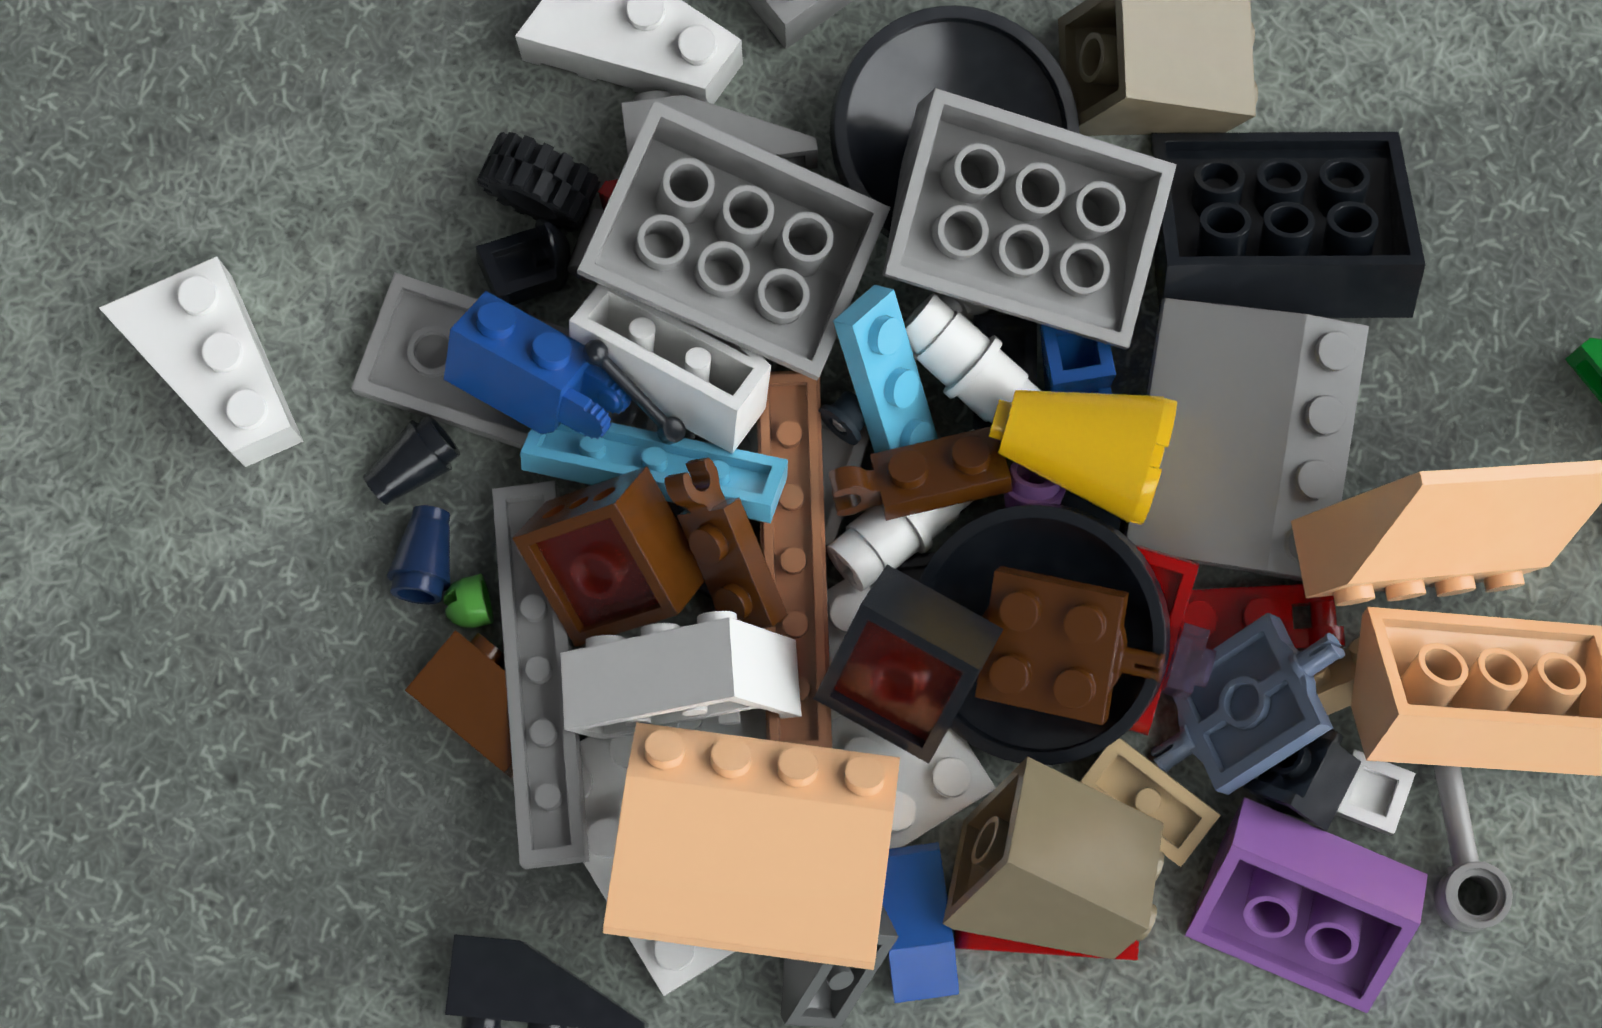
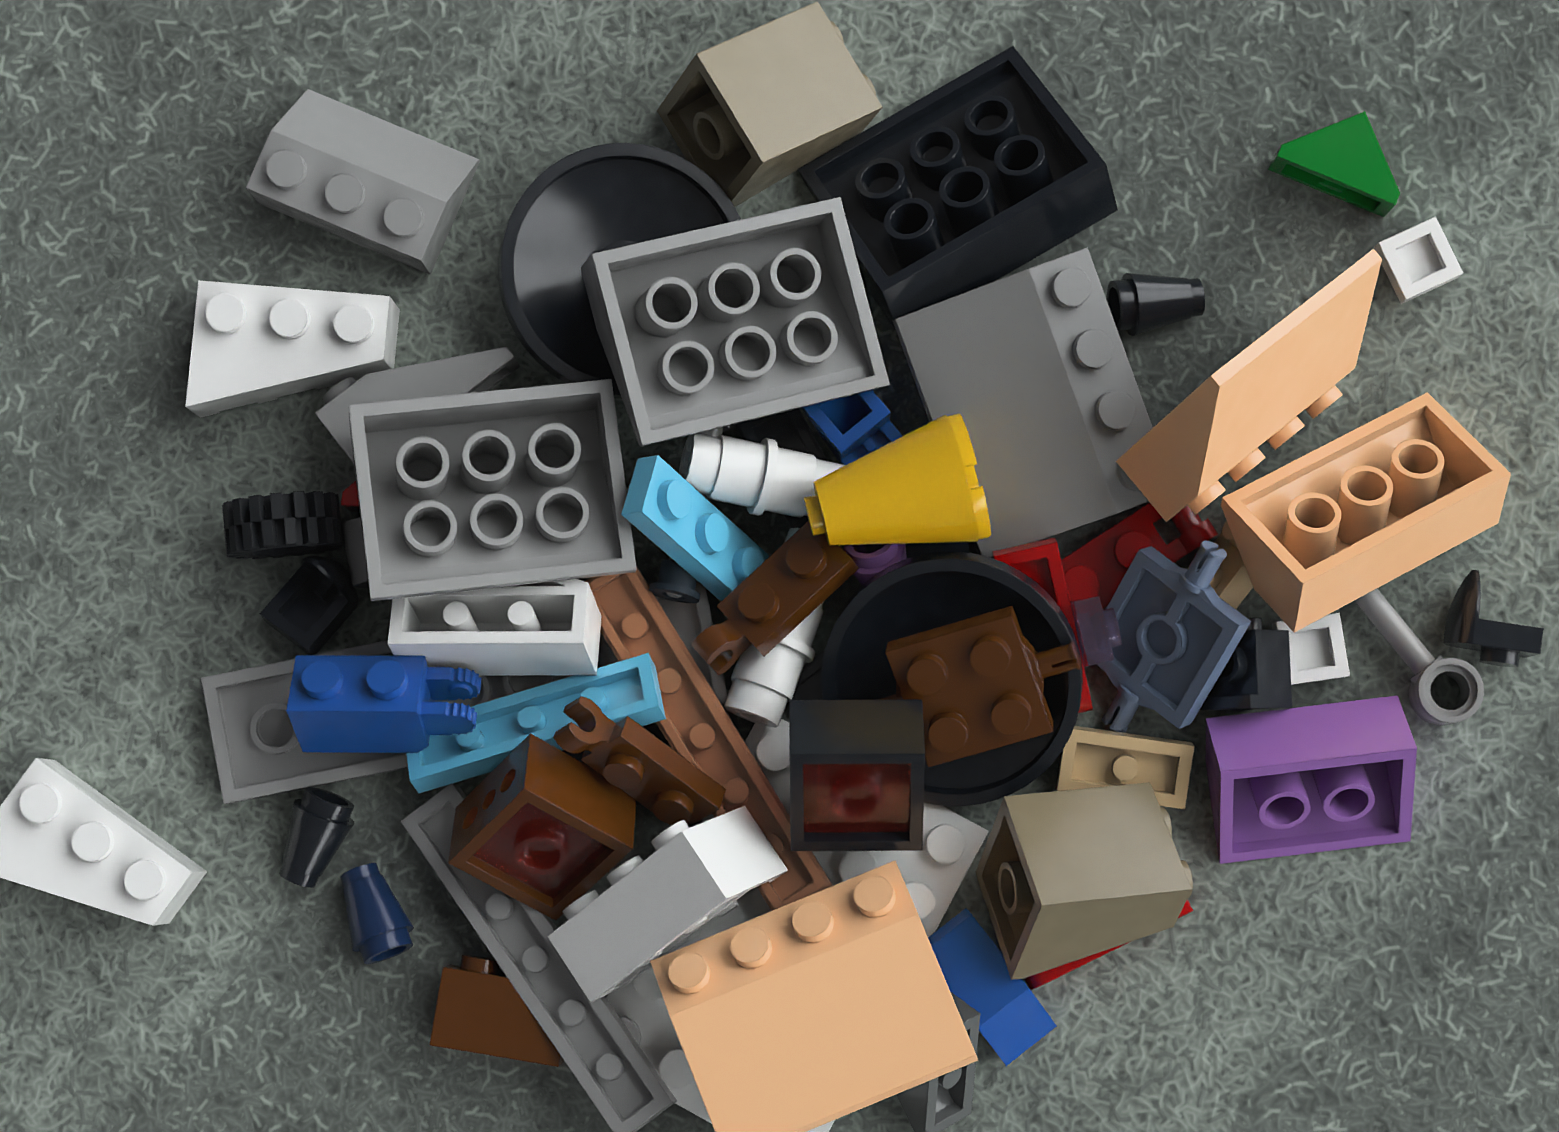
camera: 25 degrees left, 5 degrees up
(469, 602) = (438, 931): bright green hinge -> none
(669, 429) = (529, 685): black hinge -> none
(1399, 413) = (1153, 301): none -> black cone
(1544, 878) = (1497, 641): none -> black plate

